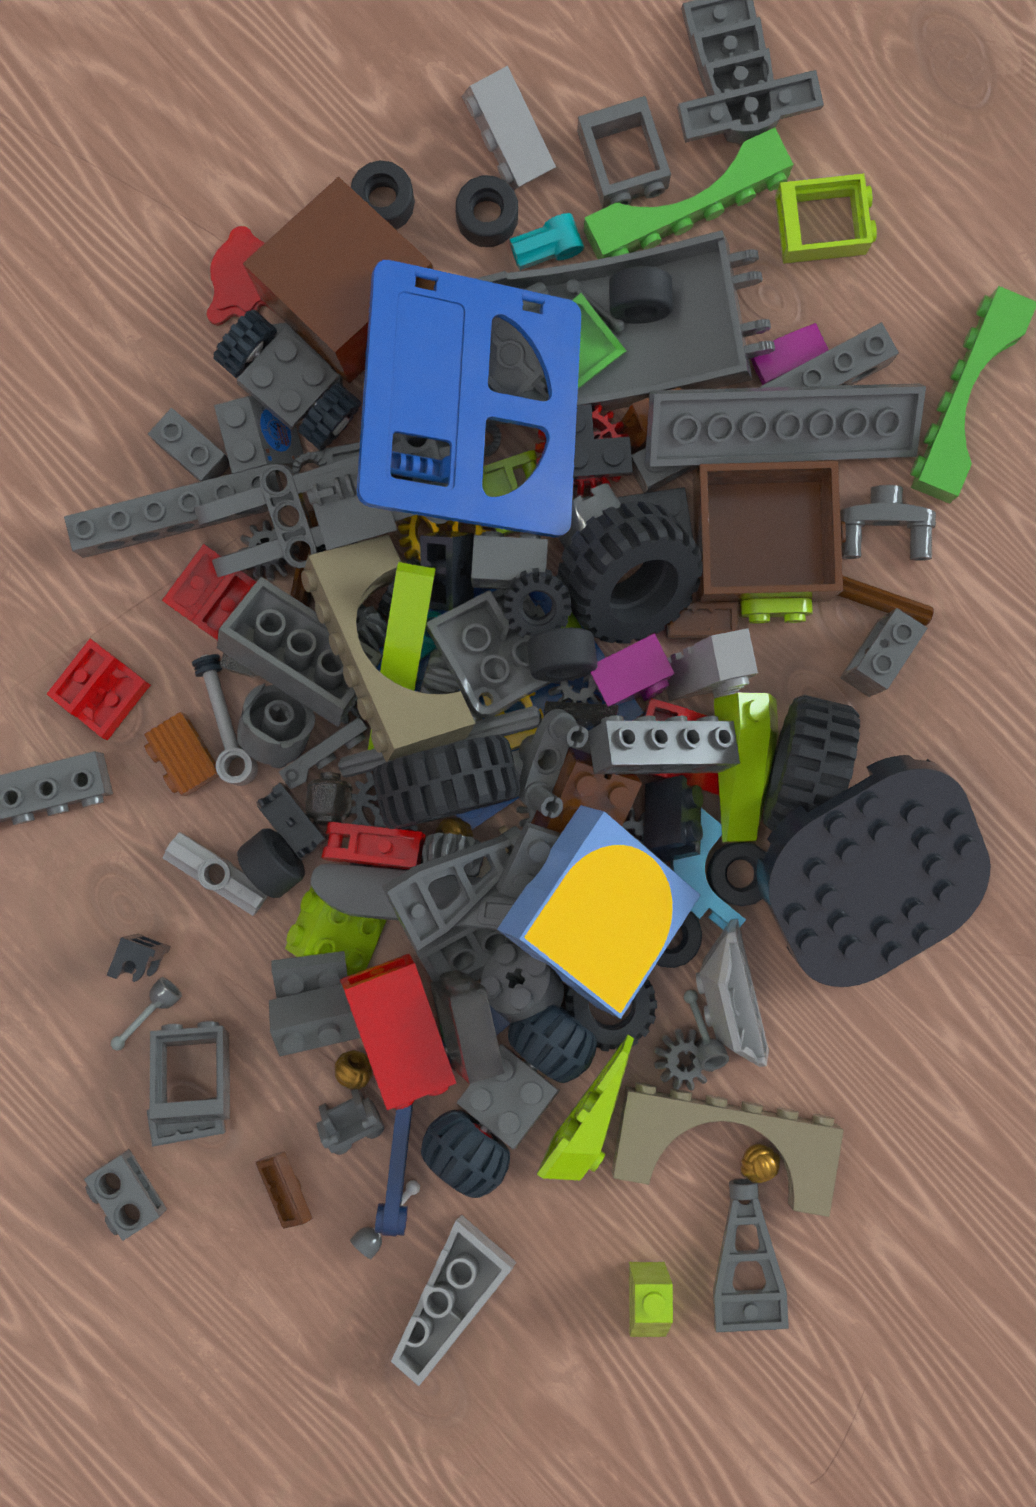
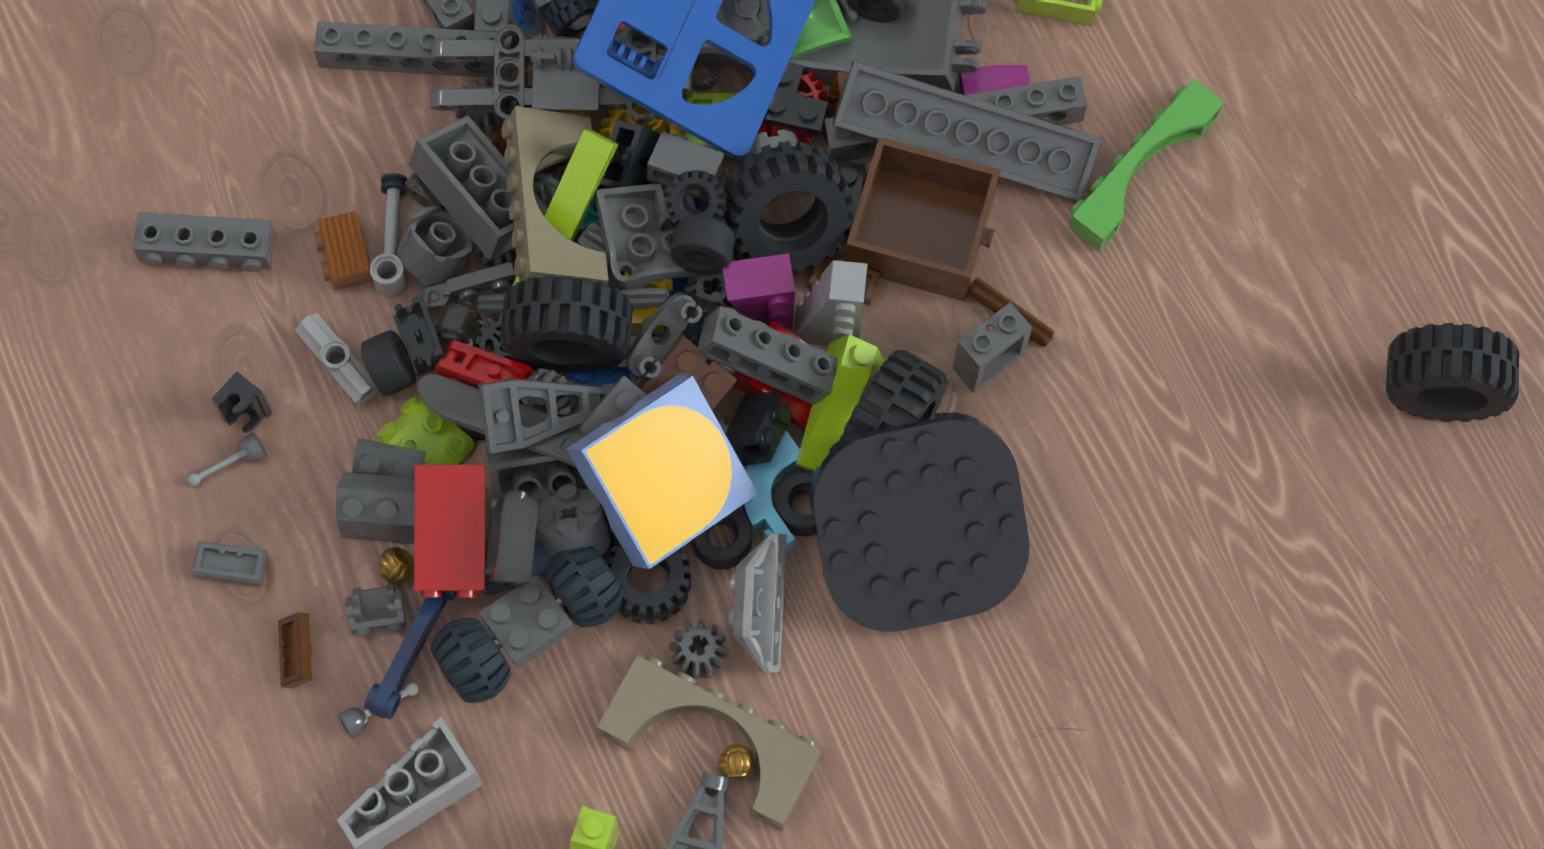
camera: 15 degrees right, 15 degrees down
(98, 689) = (291, 176): red slope -> none
(134, 1190) = (157, 606): dark grey brick -> none
(188, 1111) = (245, 546): dark grey window -> none
(204, 596) = (412, 121): red slope -> none
(581, 1136) = (581, 682): lime wedge -> none
(711, 1052) = (723, 634): dark grey hinge -> none
(792, 609) = (923, 291): lime plate -> none
(887, 509) = (1036, 237): dark grey connector -> none

